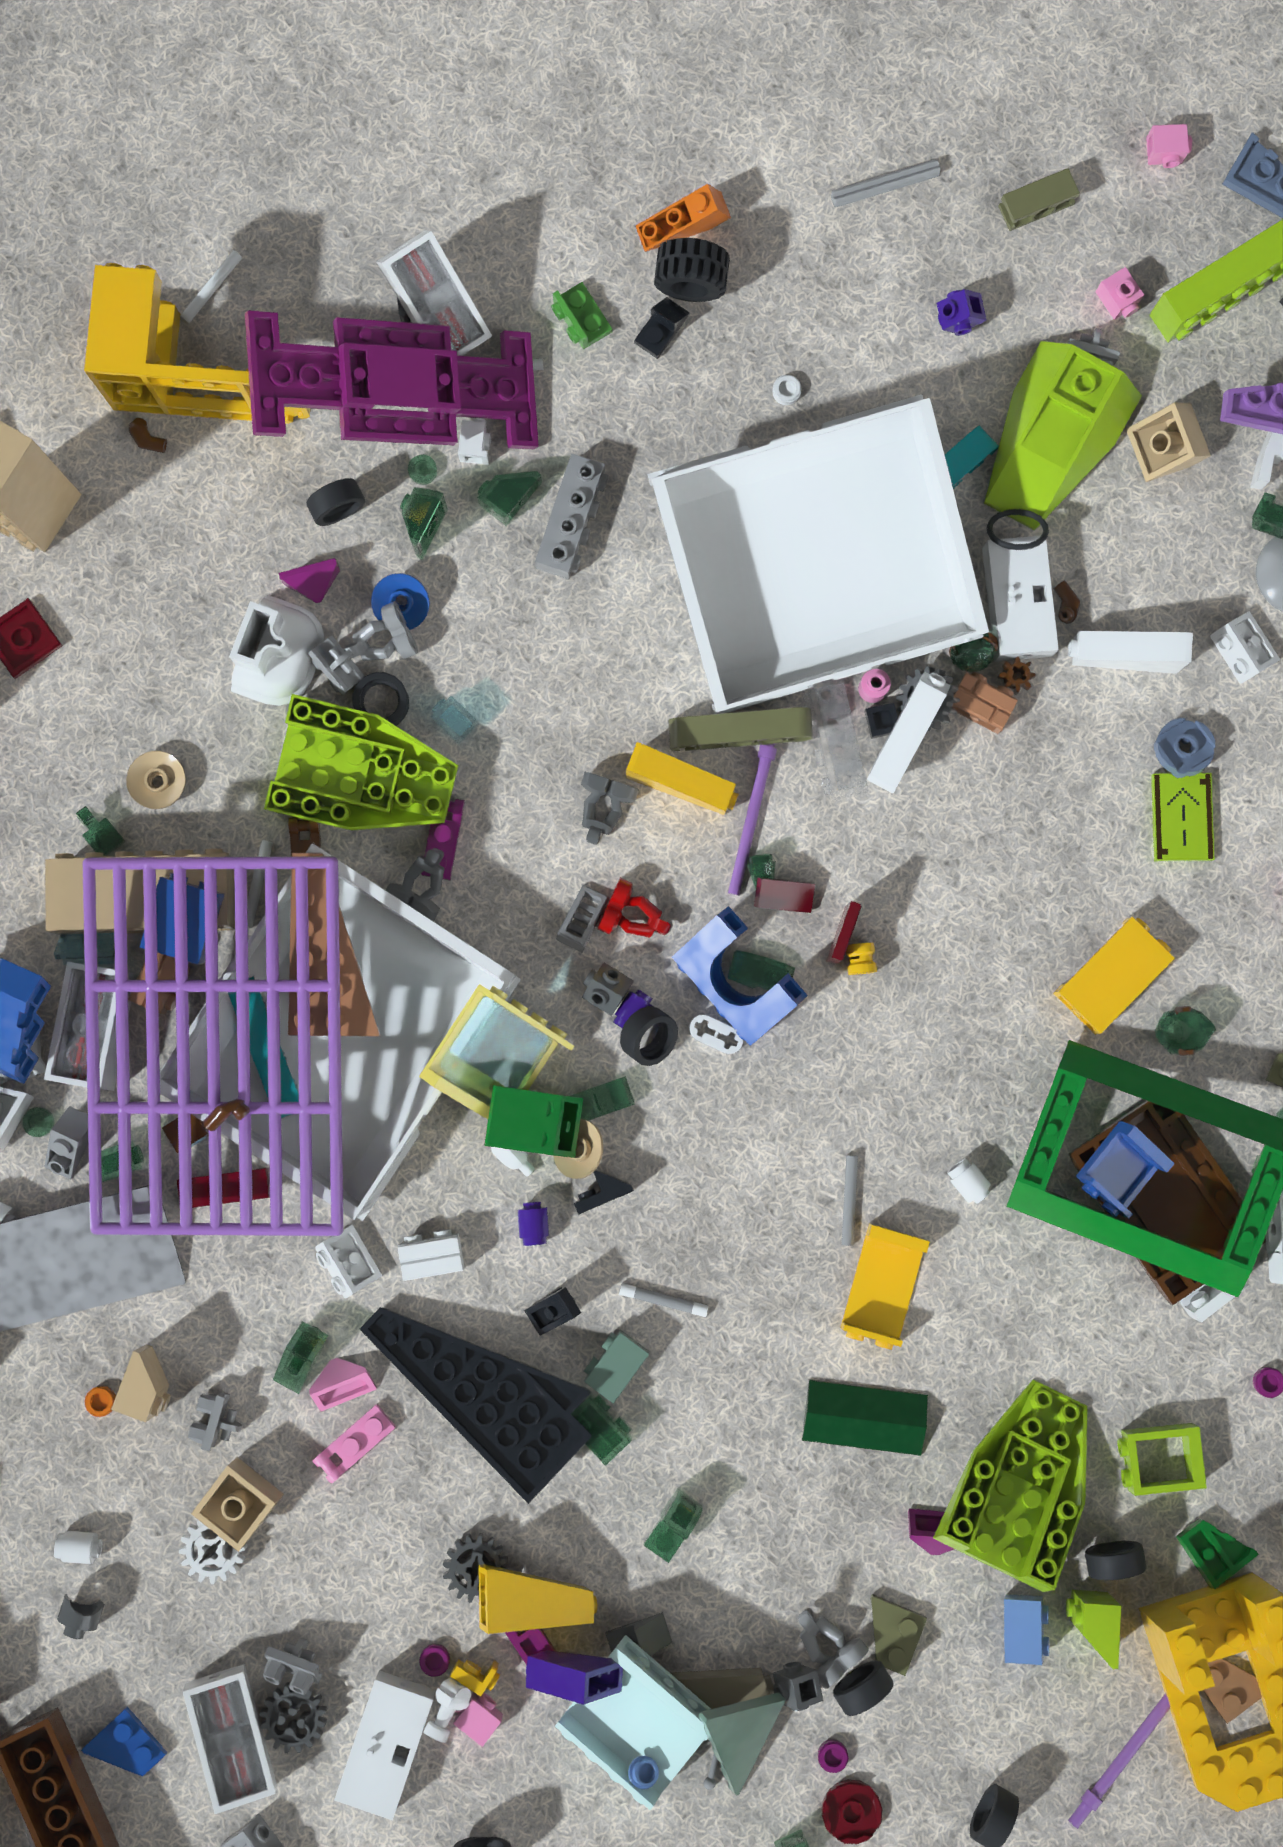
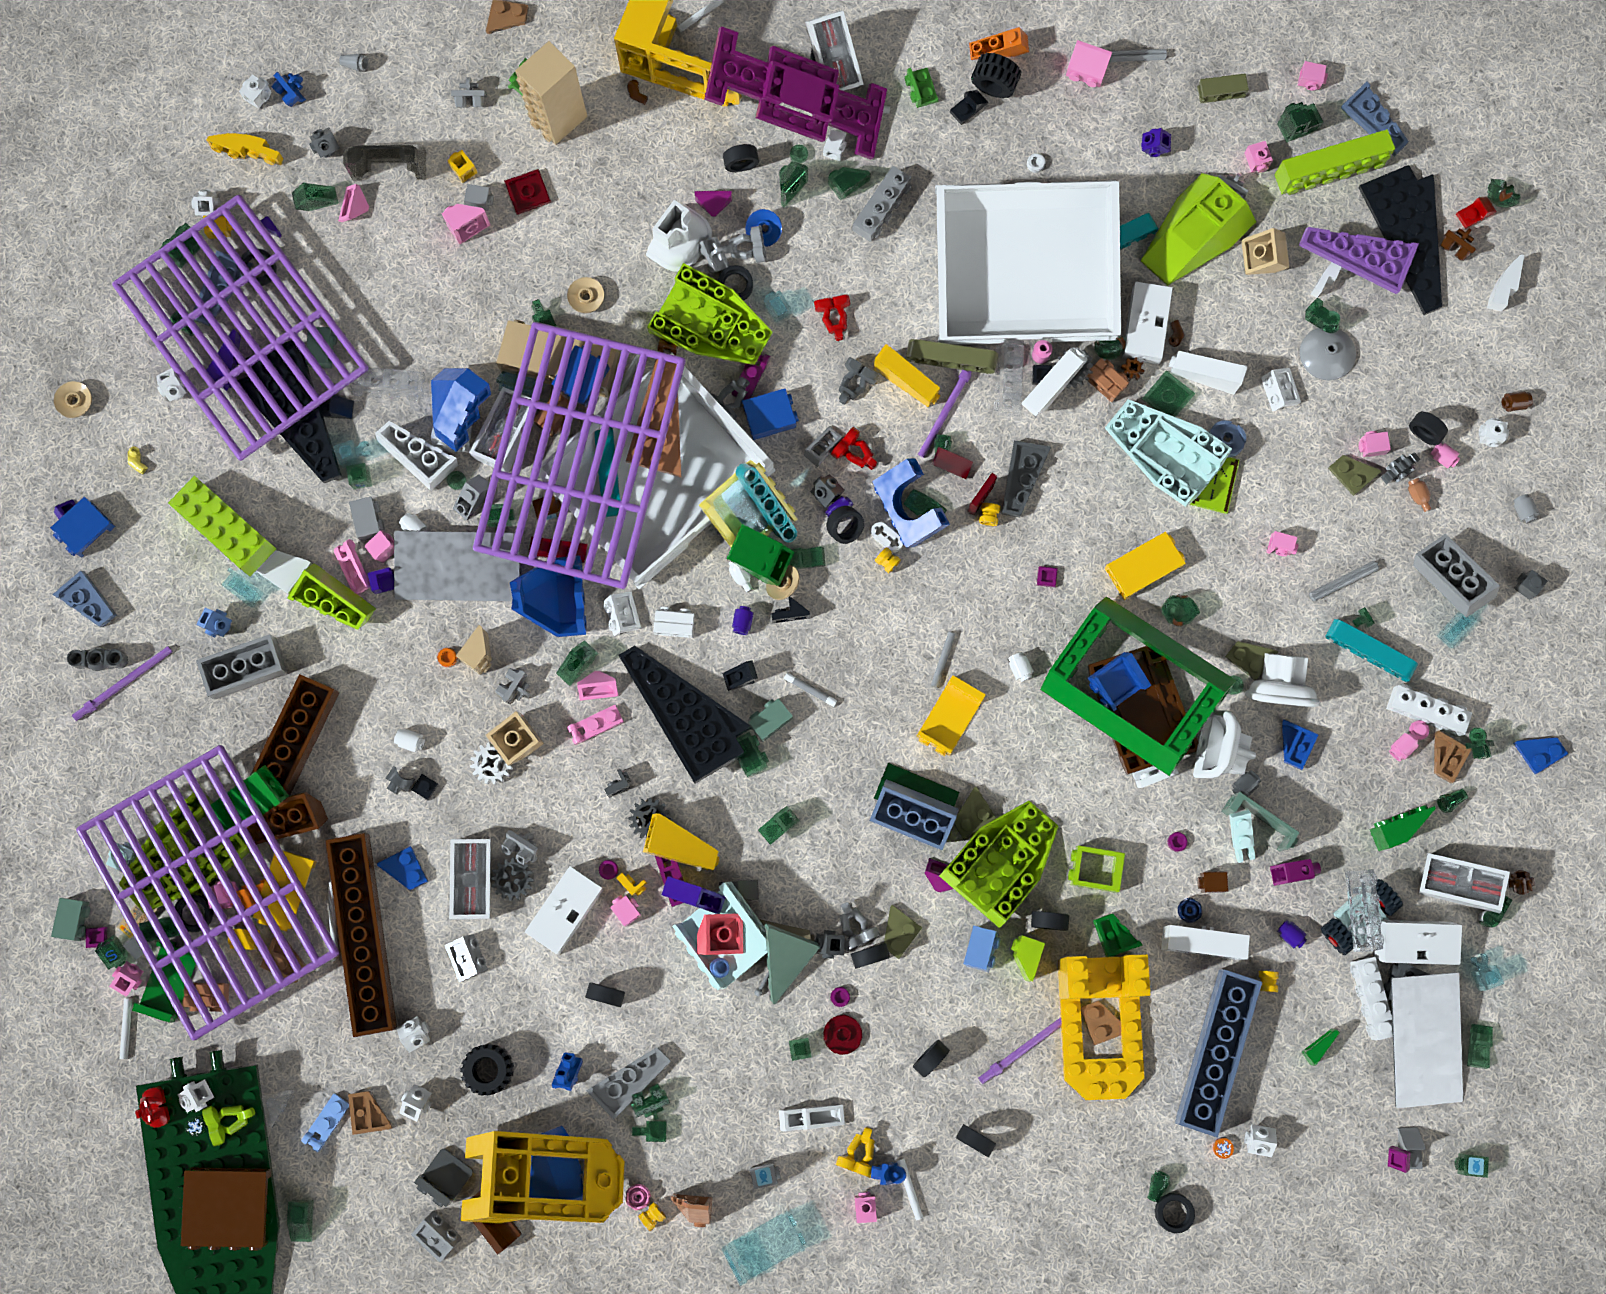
camera: 20 degrees right, 5 degrees down
(122, 1610) = (425, 787): none -> black plate
(225, 1110) = (576, 492): reddish brown arm -> none
(234, 1275) = (551, 599): none -> blue panel
(412, 1533) = (616, 787): none -> dark grey bracket
(452, 1698) = (612, 890): white leg -> none
(488, 891) = (770, 413): none -> blue brick
(513, 1032) = (760, 497): none -> teal beam
(528, 701) = (826, 305): none -> red piece
(632, 1728) = (720, 934): none -> coral slope
(727, 1071) = (887, 560): none -> yellow wheel
(827, 215) = (1088, 64): none -> bright pink slope
(871, 1456) = (914, 814): none -> sand blue brick
(894, 875) = (1023, 472): none -> dark grey wing
(957, 1424) = (973, 814): none -> olive wing
(971, 1030) = (1047, 576): none -> magenta tile
(996, 540) = (1154, 288): black tyre -> none
(1080, 702) = (1168, 395): none -> clear green tile
(1103, 789) = (1168, 450): none -> light aqua wedge
(1167, 222) = (1299, 121): none -> clear green brick

